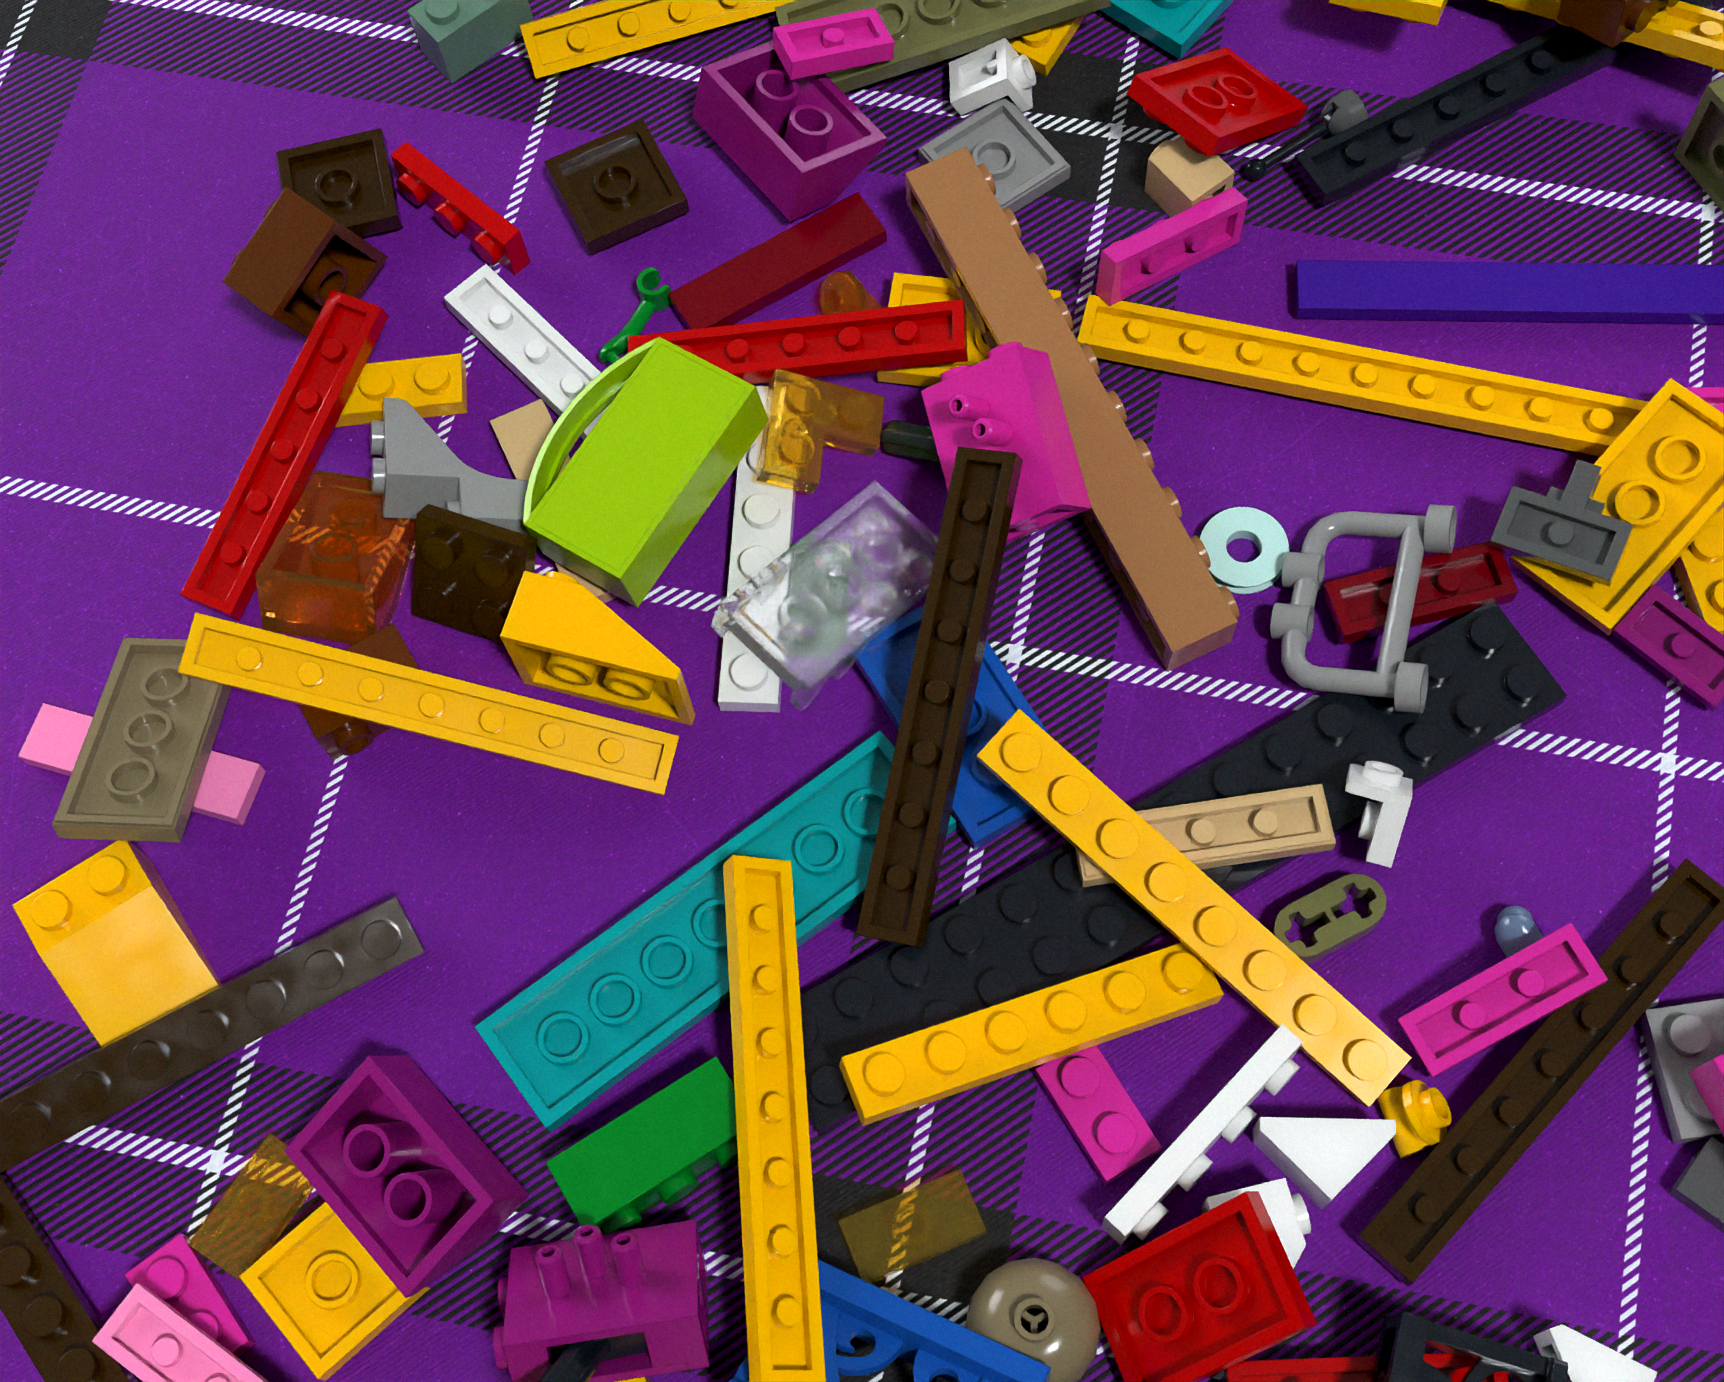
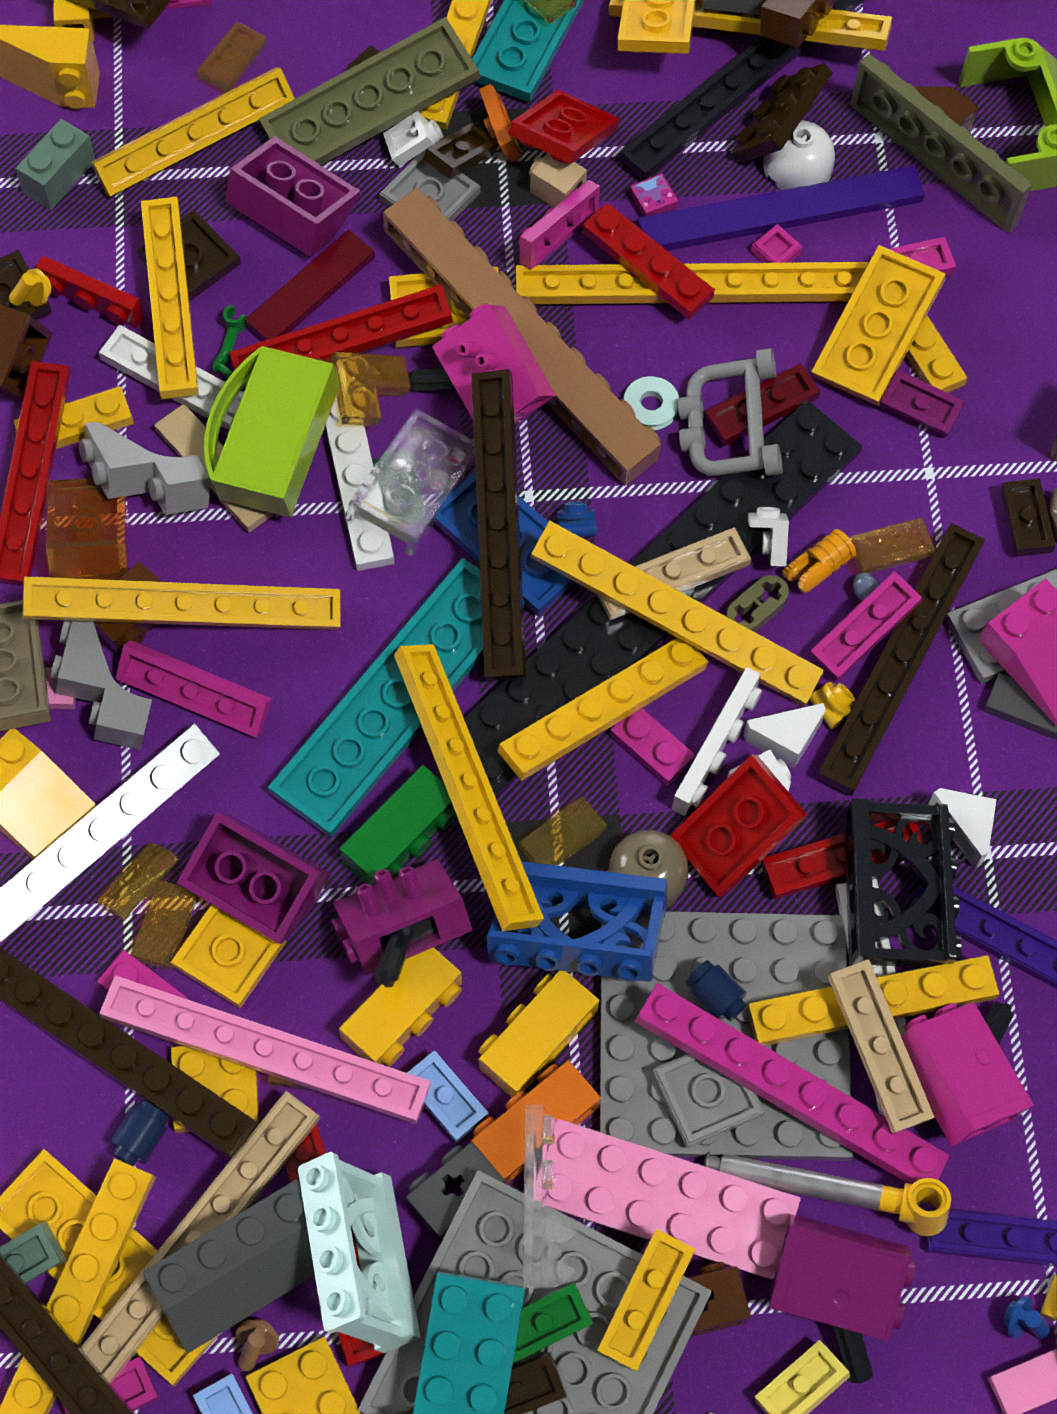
camera: 25 degrees left, 0 degrees up
(235, 1127) = (137, 880): none -> clear yellow plate
(260, 777) = (85, 675): none -> light grey arch
(373, 184) = (31, 287): none -> yellow plate
(416, 839) = (193, 688): none -> dark pink plate
(467, 571) = (180, 521): dark brown plate -> none
(562, 241) = (169, 298): none -> yellow plate
(583, 649) = (273, 550): yellow slope -> none
(833, 43) = (309, 136): dark pink plate -> none
(845, 293) = (360, 296): clear orange plate -> none
(1053, 108) = (460, 151): none -> dark brown plate
(1075, 710) = (578, 519): none -> blue plate
(1123, 65) = (499, 123): none -> orange plate
(1294, 329) = (648, 260): none -> red plate
(1330, 232) = (653, 196): none -> dark pink tile
(1336, 116) = (639, 121): hinge -> none
(1451, 870) = (820, 560): none -> light orange hinge
(1504, 348) = (776, 247): none -> dark pink tile
(1561, 144) = (780, 113): none -> dark brown plate
(1564, 528) = (838, 347): dark grey hinge -> none
(1574, 214) = (803, 160): none -> white cylinder
(1577, 872) = (892, 546): none -> clear yellow plate

